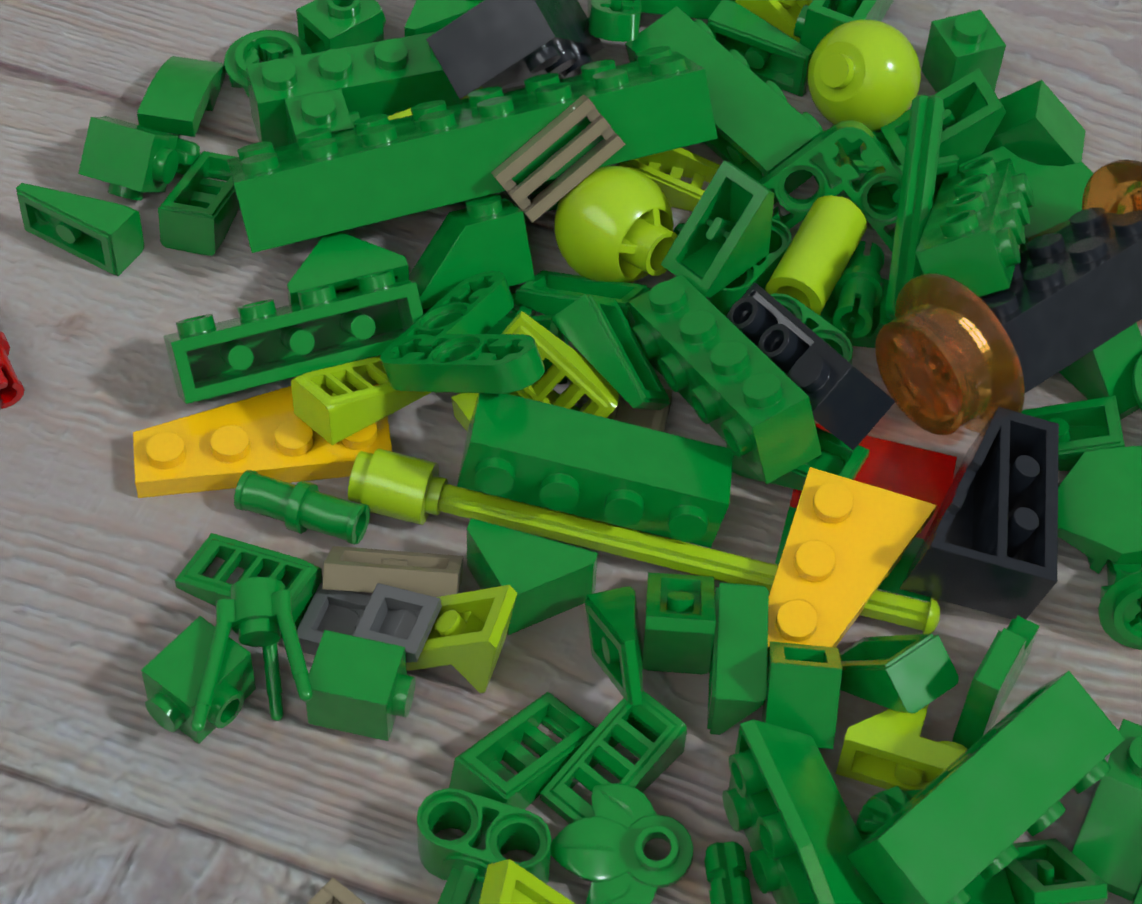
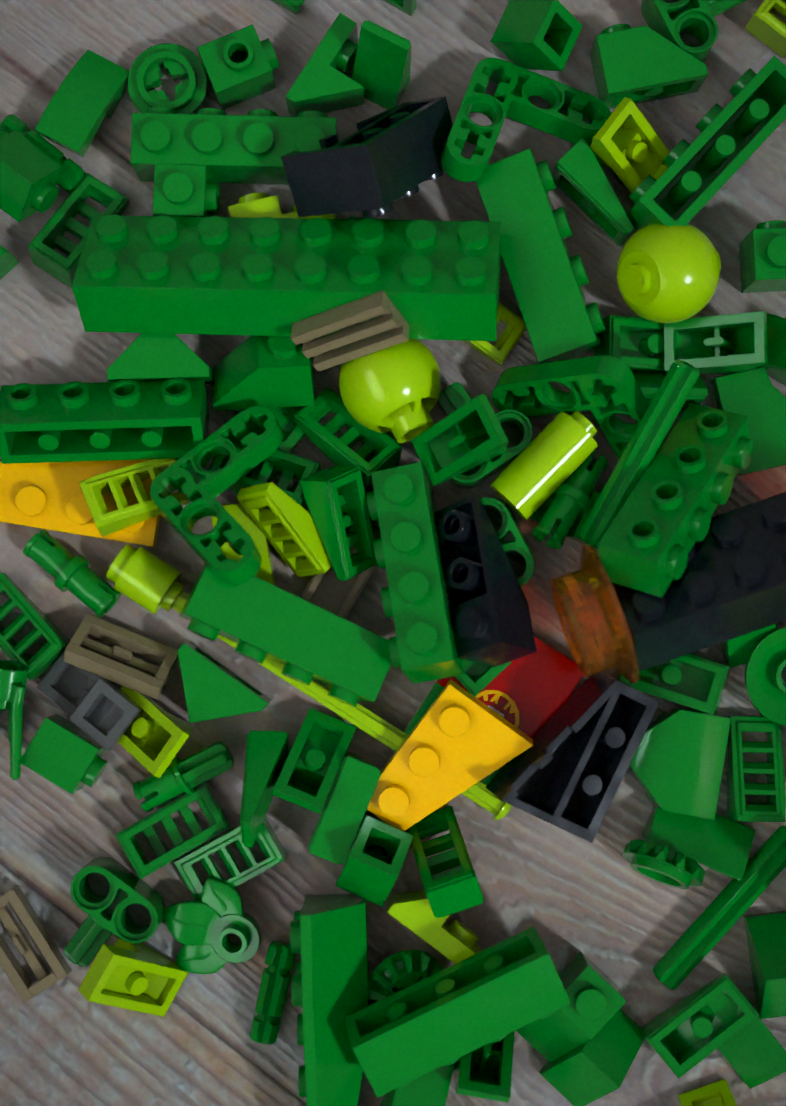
camera: 20 degrees right, 35 degrees up
(517, 683) = (184, 775): none -> green axle
(995, 680) = (518, 894): green tile -> none

